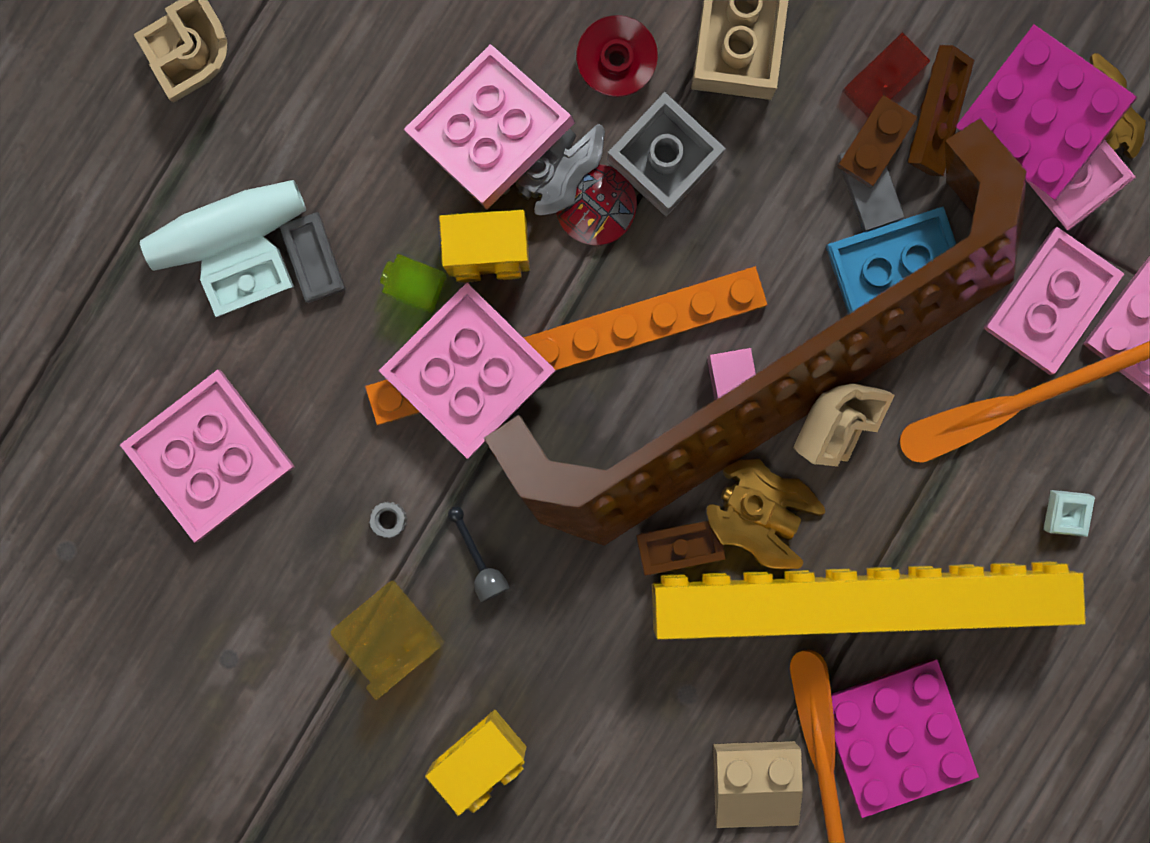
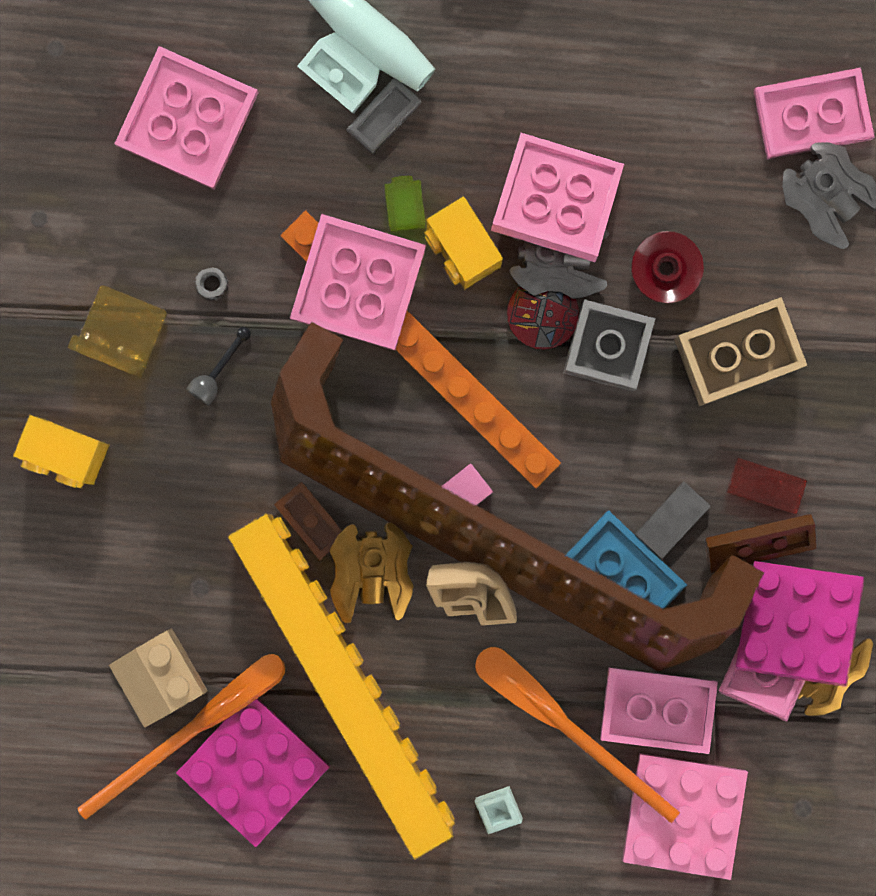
camera: 55 degrees right, 0 degrees up
(877, 141) = (708, 505): reddish brown plate -> none

